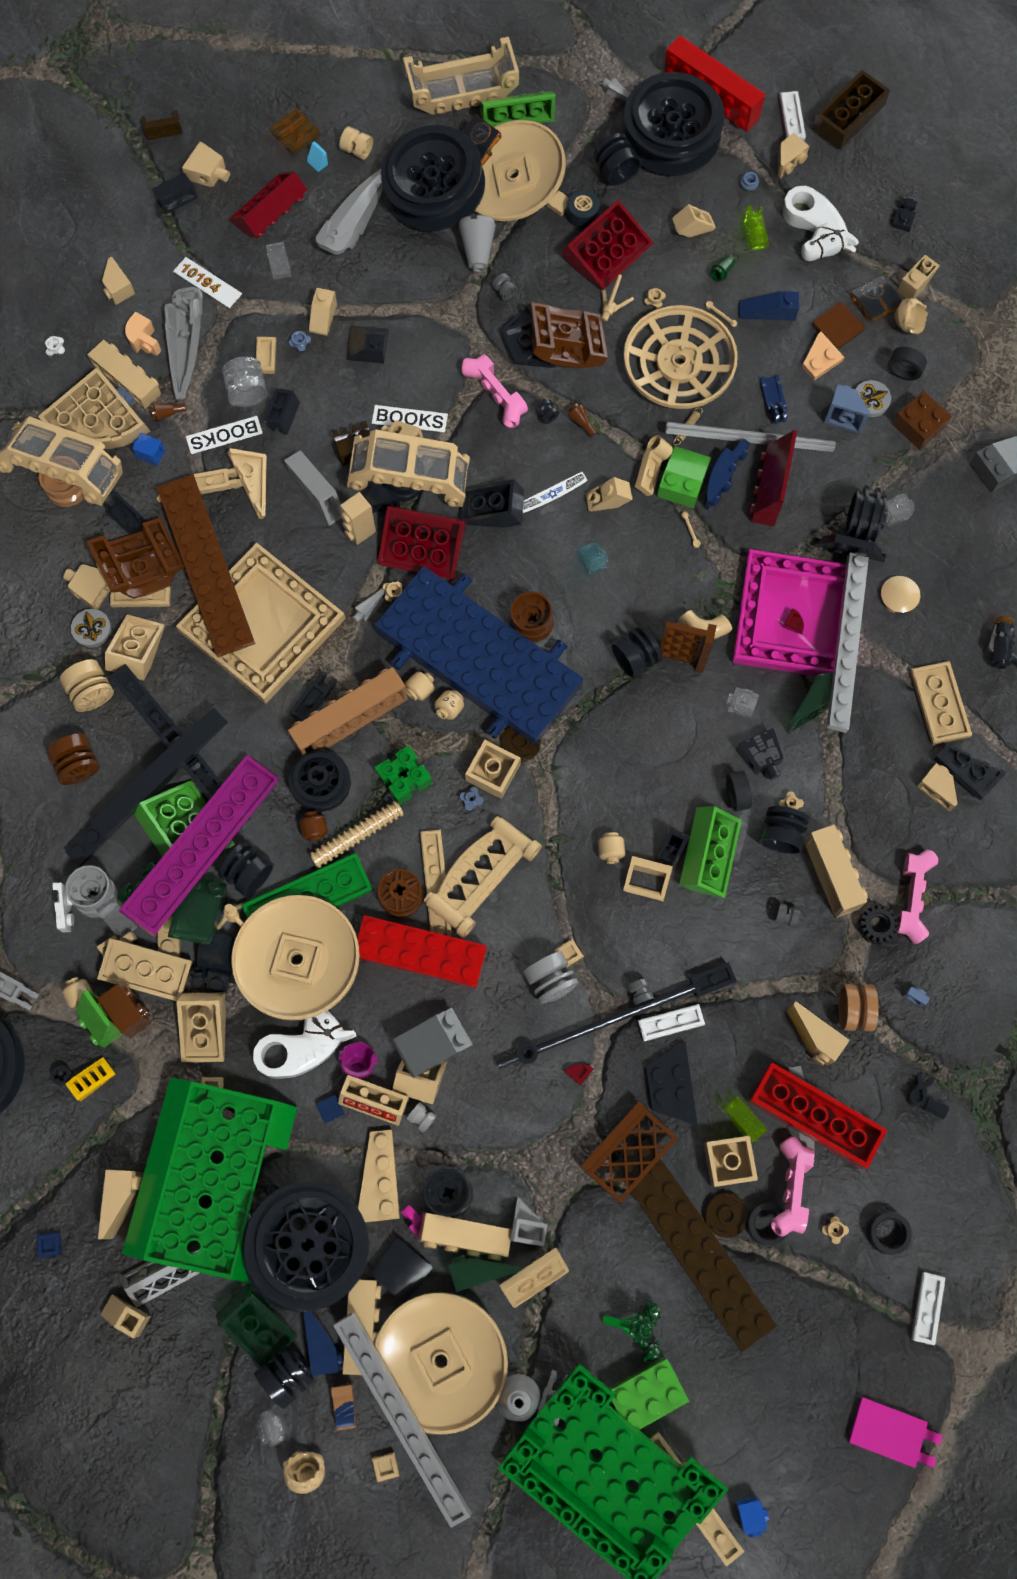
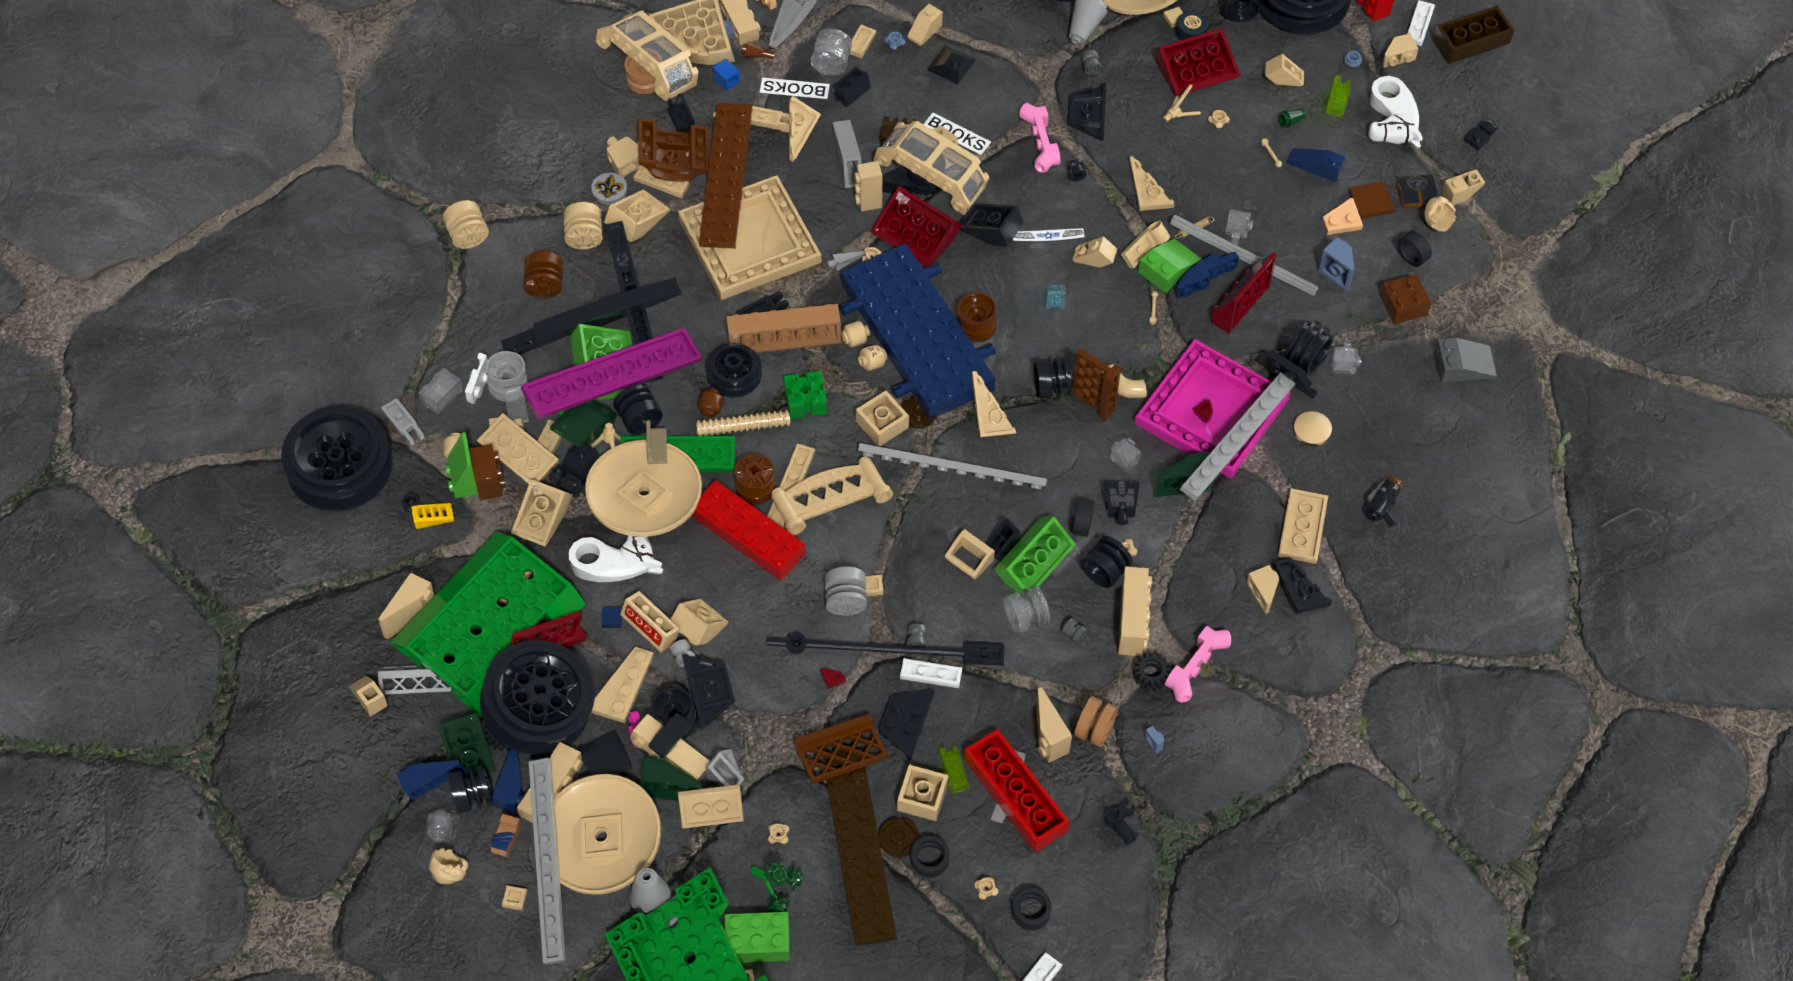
camera: 25 degrees right, 15 degrees down
(29, 936) = (440, 391): none -> clear brick
(49, 1245) = (335, 620): dark blue tile -> none
(225, 1388) = (424, 777): none -> dark blue slope
(284, 1167) = (562, 635): none -> dark red fence
(286, 904) = (656, 445): none -> dark tan panel
(358, 1060) = (654, 586): magenta cap -> none
(432, 1043) = (721, 597): dark grey slope -> none
(461, 1228) = (669, 735): none -> black slope
(465, 797) = (853, 441): sand blue plate -> none
(466, 1144) = (709, 688): none -> black wing
(567, 336) = (1123, 118): reddish brown slope -> none
(579, 415) = (1102, 182): reddish brown cone -> none
(591, 787) = (961, 468): none -> light grey plate
(595, 719) = (990, 417): none -> tan wing
(604, 1266) = (778, 828): none -> tan plate
(611, 847) = (951, 518): tan head -> none
(626, 406) = (1148, 193): none -> tan wing
(681, 349) = (1217, 165): tan dish -> none
(729, 406) = (1238, 225): none -> clear brick
(734, 916) = (1025, 610): none -> clear wheel
(774, 397) = (1284, 232): dark blue arm -> none
(801, 1161) = (954, 851): bright pink plate -> none
(875, 396) = (1371, 267): tile -> none

